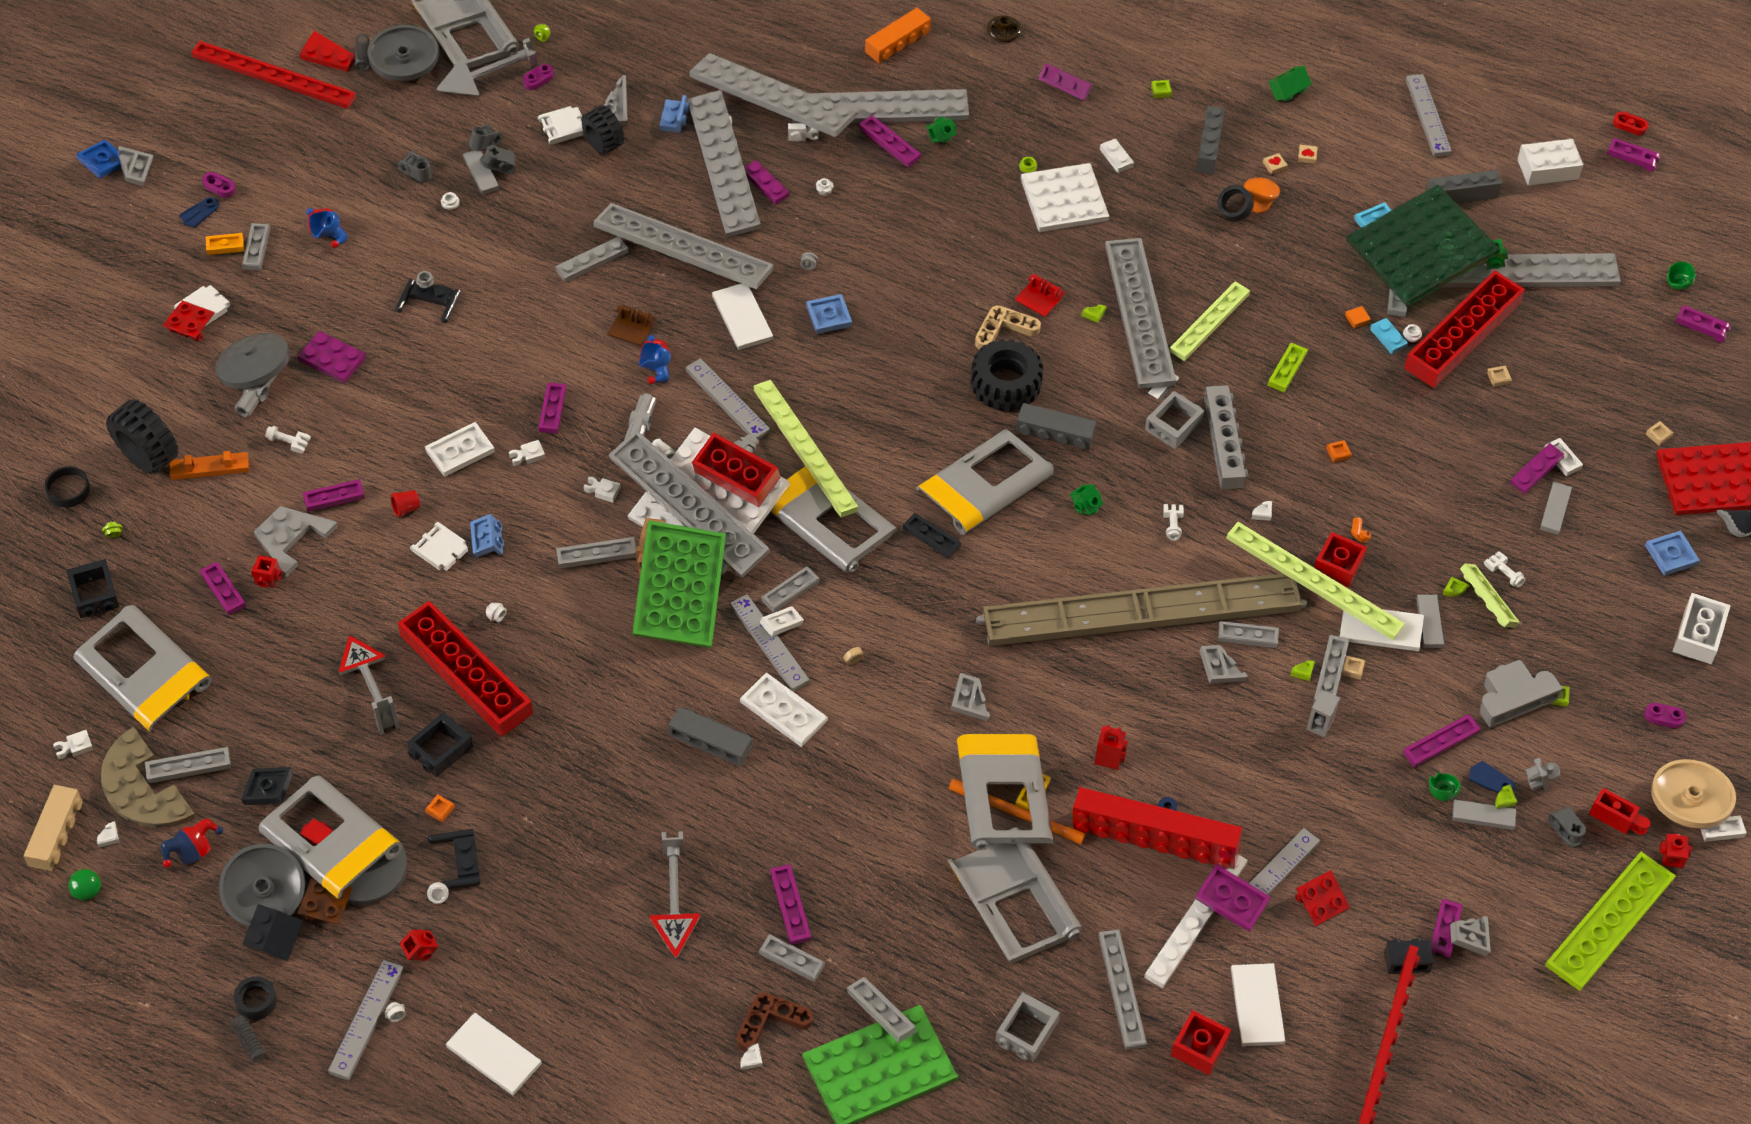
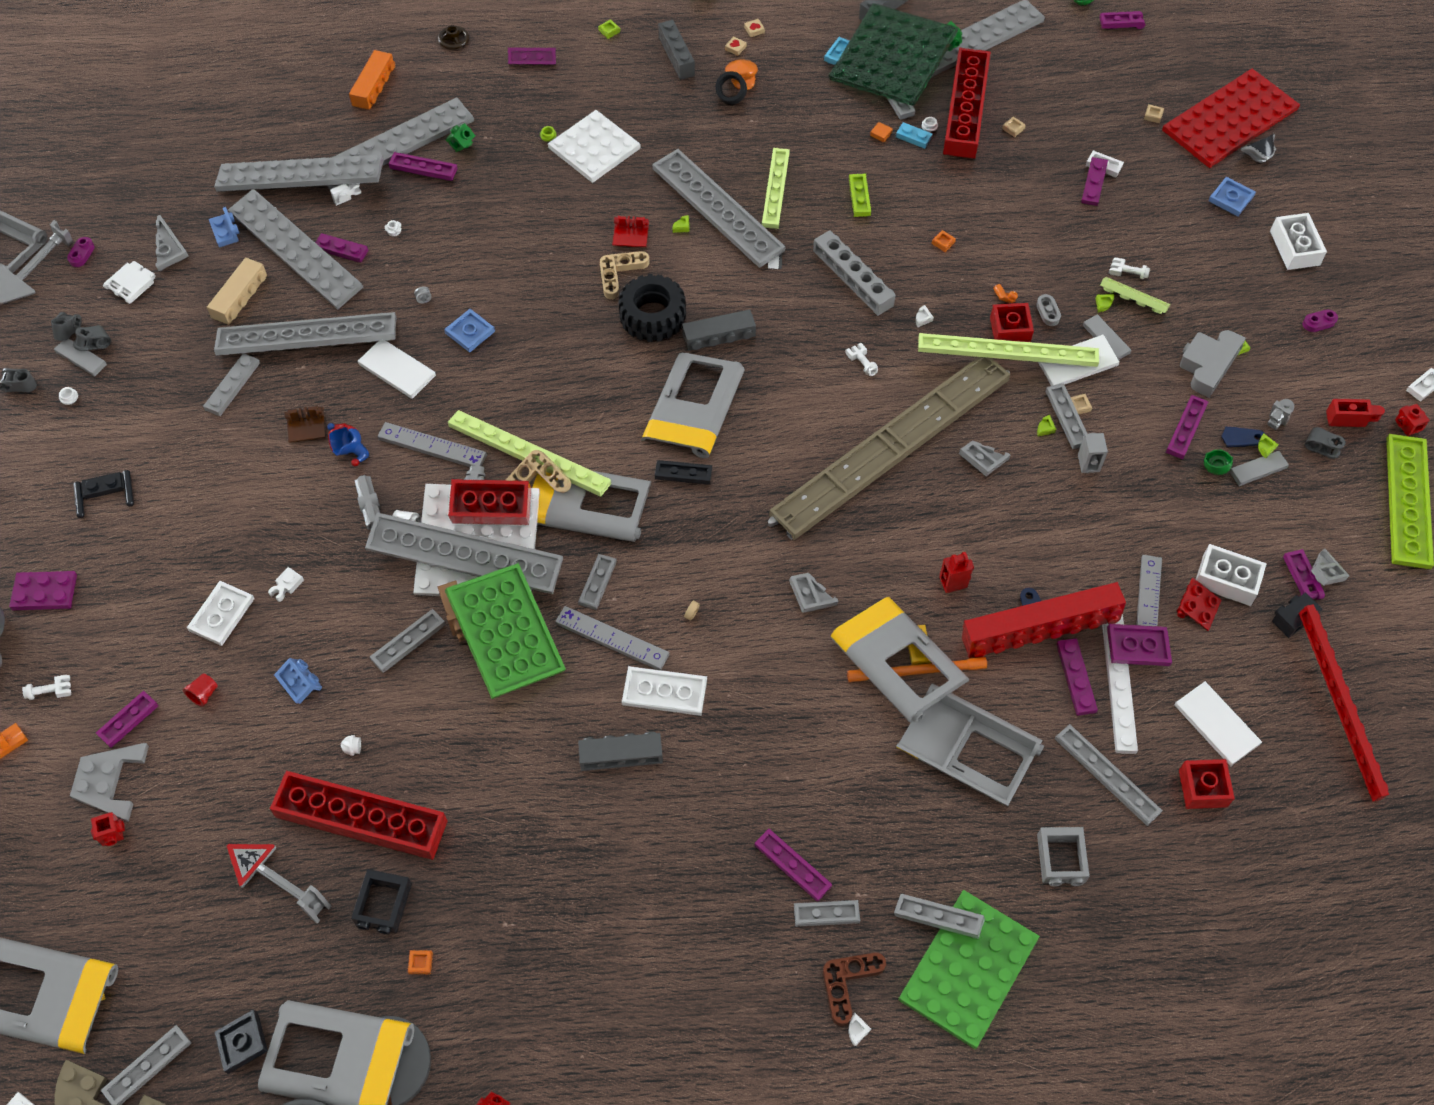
camera: 30 degrees left, 5 degrees up
(222, 588) = (72, 868): magenta plate -> none
(315, 832) = (320, 1061): red brick -> none
(425, 279) = (88, 473): light grey plate -> none
(437, 892) = (473, 1048): white plate -> none
(441, 548) = (261, 714): white plate -> none
(465, 857) = (475, 996): black plate -> none
(542, 32) = (60, 212): lime plate -> none
(552, 408) = (282, 532): magenta plate -> none
(602, 129) = (171, 268): black tyre -> none
(603, 490) = (377, 580): white plate -> none
(648, 177) = (237, 291): none -> tan brick
(675, 927) = (708, 947): light grey piece -> none
(781, 621) = (611, 613): white plate -> none
(802, 465) = (535, 467): none -> tan beam
(1086, 499) = (786, 376): green brick -> none
(1116, 155) = (611, 95): white plate -> none
(1158, 896) = (1076, 677): none -> magenta plate
(1166, 432) = (806, 291): light grey window -> none
(1248, 634) = (984, 420): light grey tile -> none
(1370, 887) = (1231, 574): none -> white brick
(1389, 567) = (1050, 313): none -> light grey plate
(1555, 508) = (1127, 205): light grey tile -> none
(1693, 793) = (1391, 369): tan dish -> none

